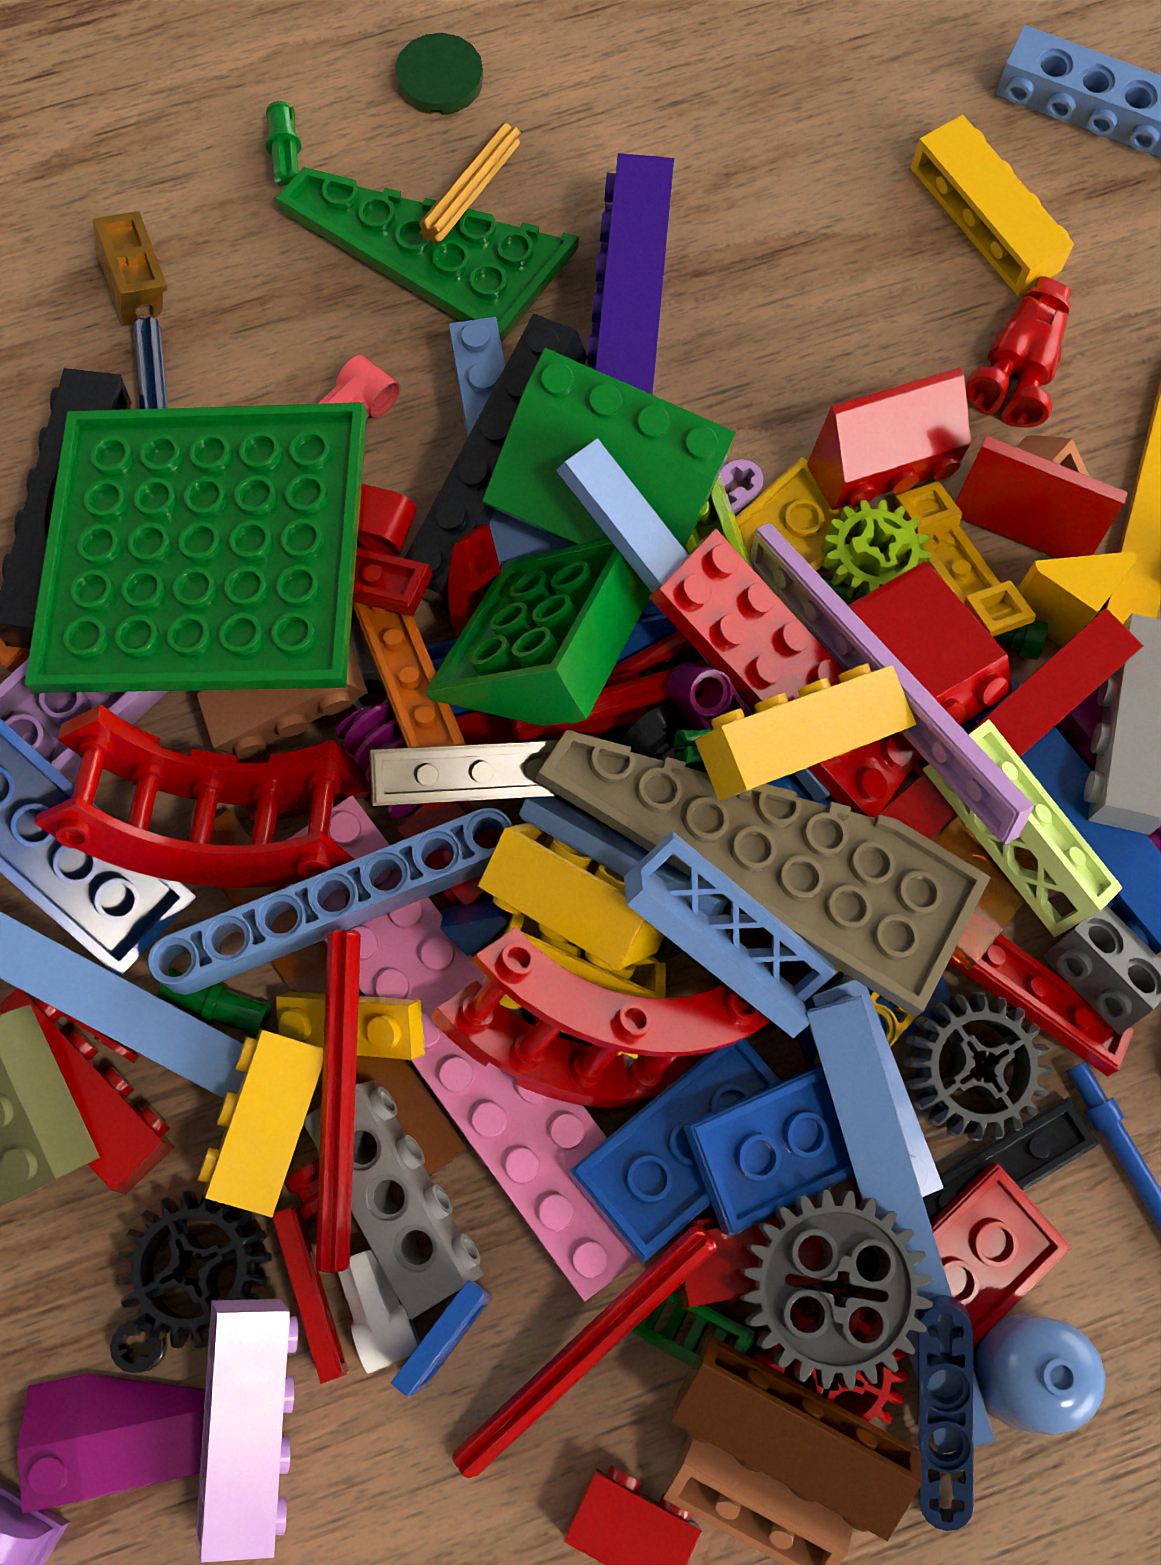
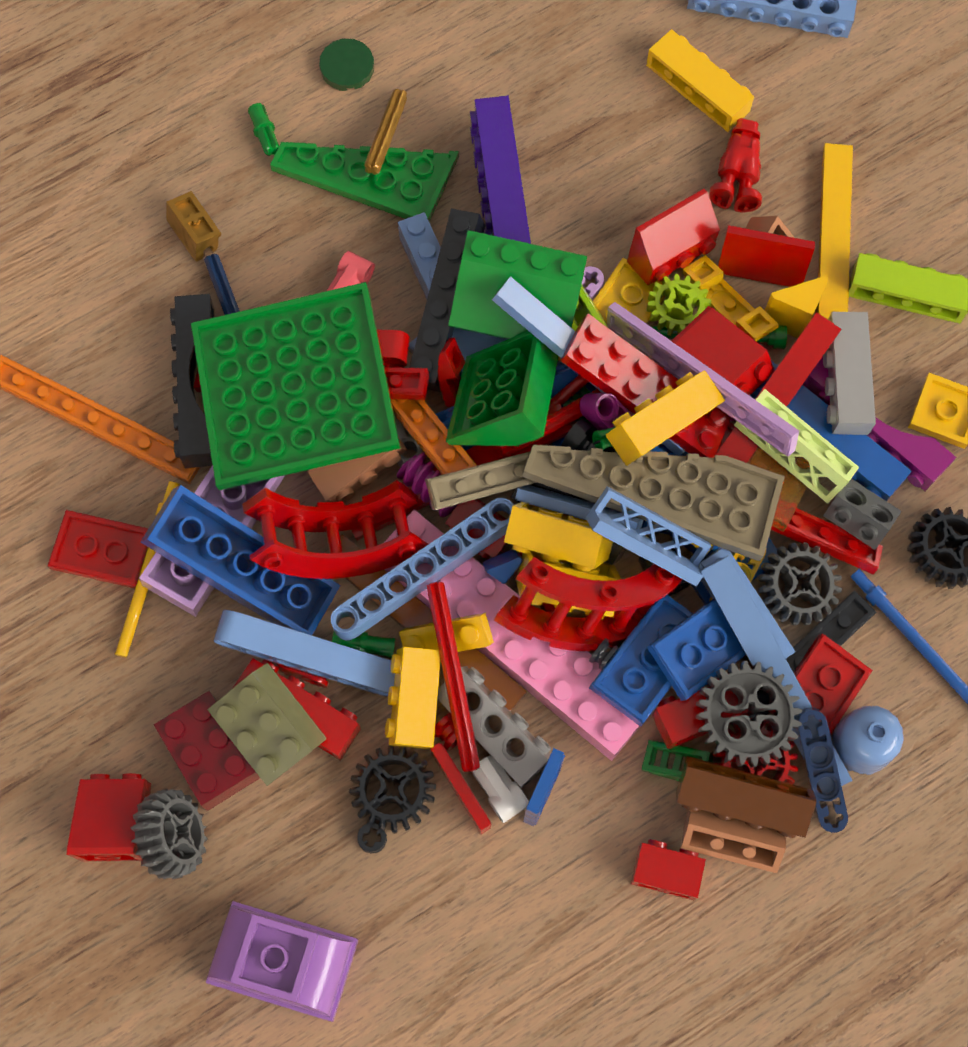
camera: 10 degrees left, 0 degrees up
(105, 1438) = (375, 886): magenta wedge -> none
(243, 1430) = (445, 862): brick -> none
(584, 1351) = (620, 781): red axle -> none
(606, 1119) = (603, 653): none -> black bush

